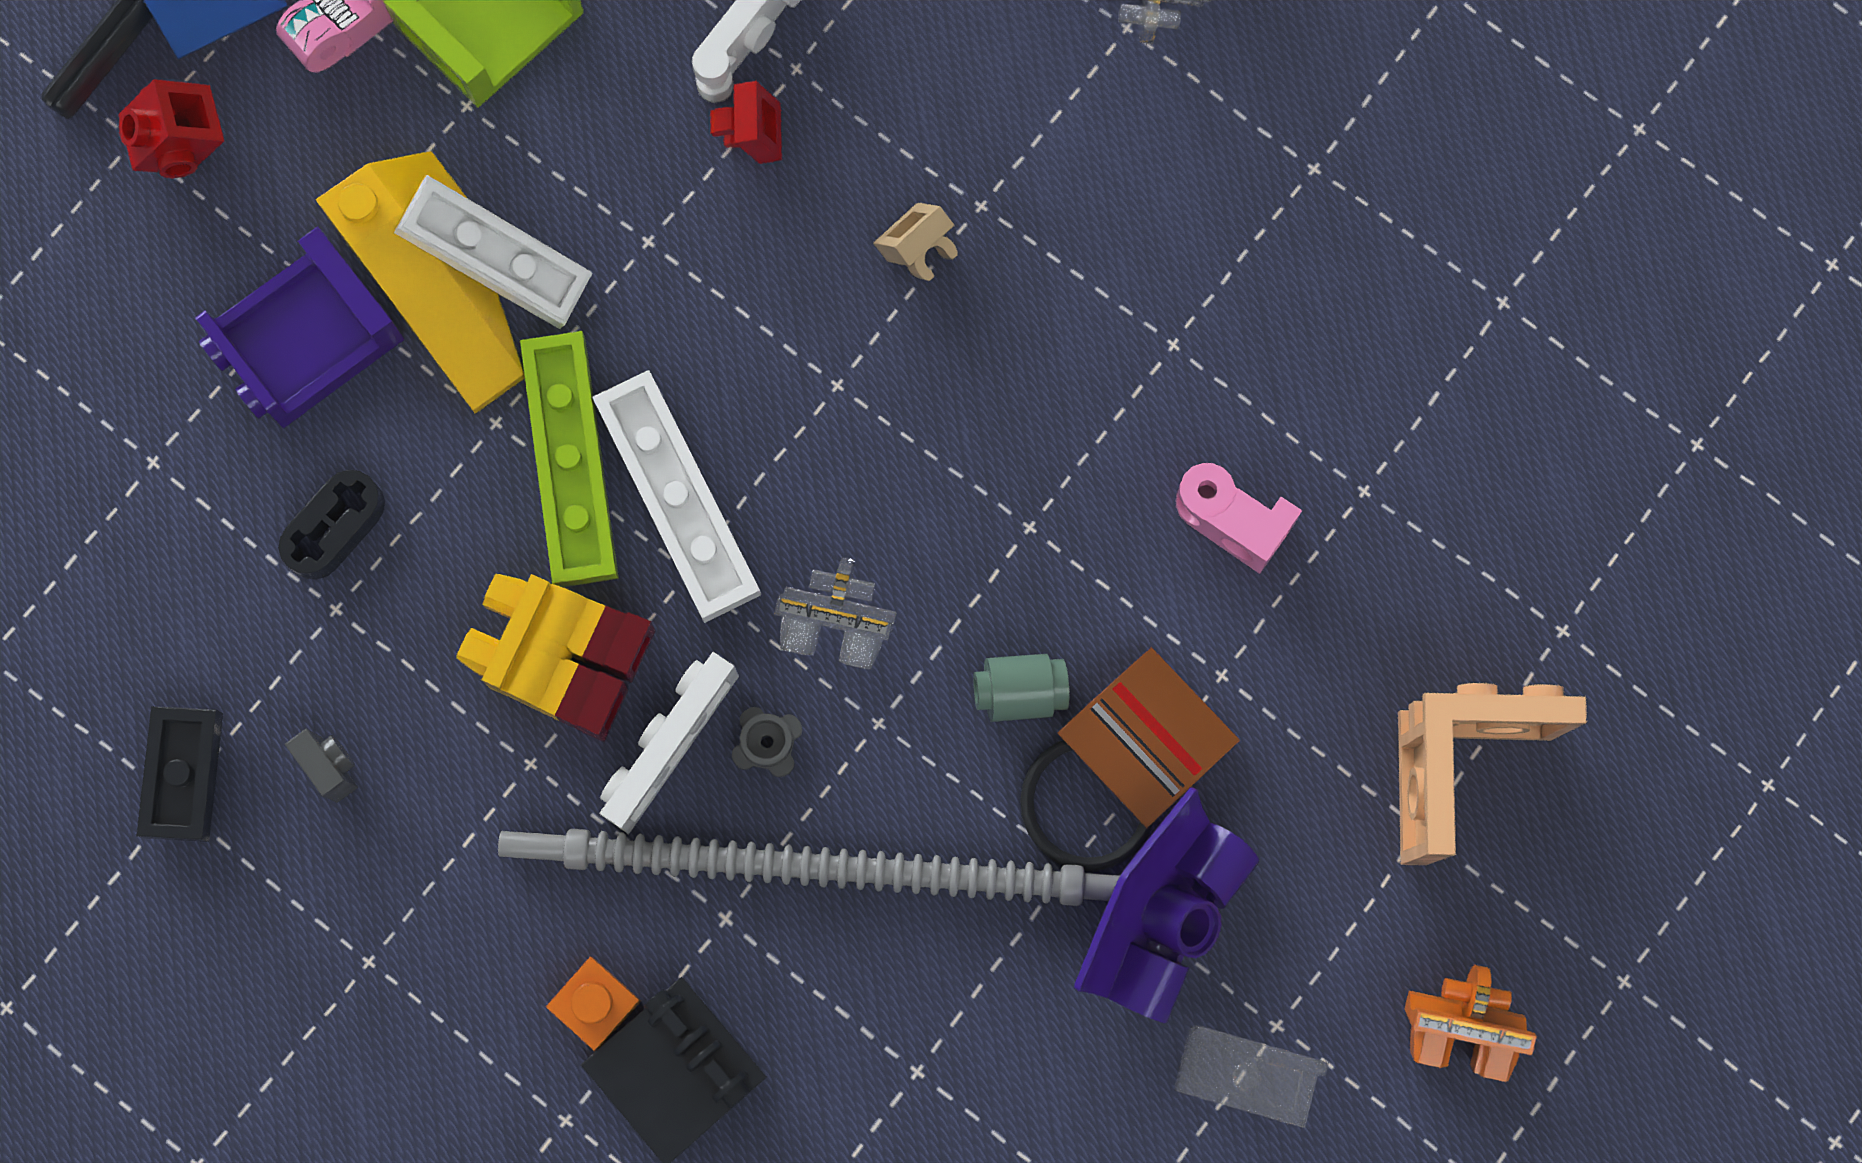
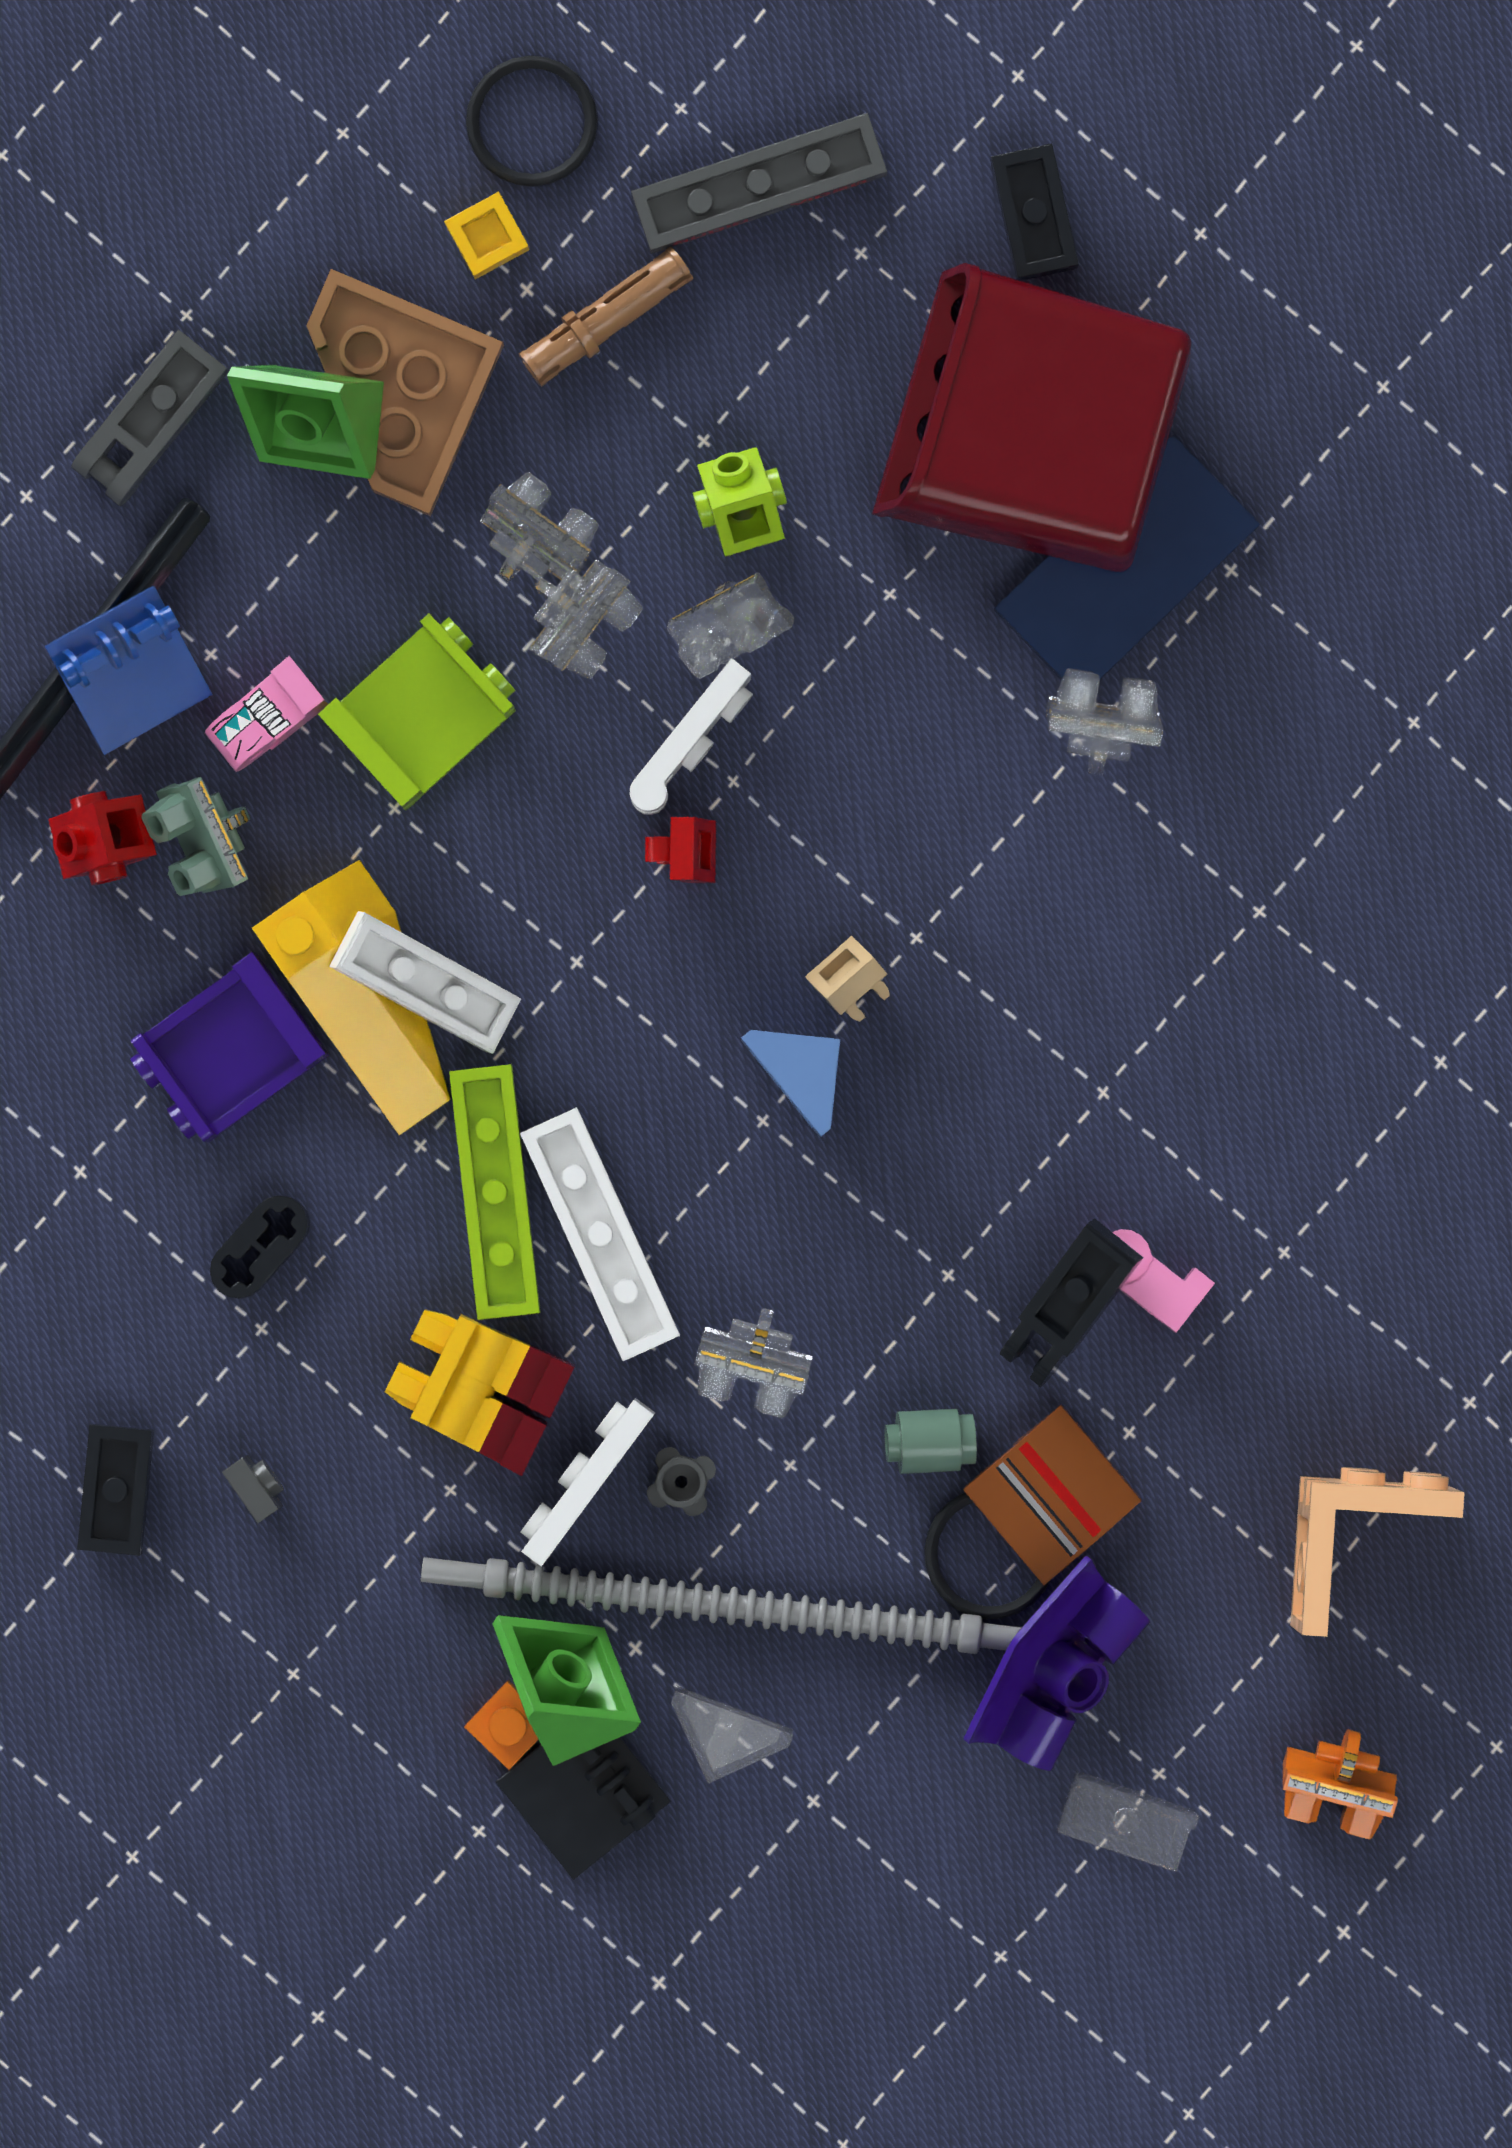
camera: 10 degrees right, 10 degrees up
(274, 121) = (205, 835): none -> sand green hips
(649, 952) = (567, 1684): none -> bright green slope
(821, 1003) = (724, 1735): none -> clear slope
(868, 314) = (801, 1069): none -> medium blue slope
(1158, 531) = (1073, 1297): none -> black hinge

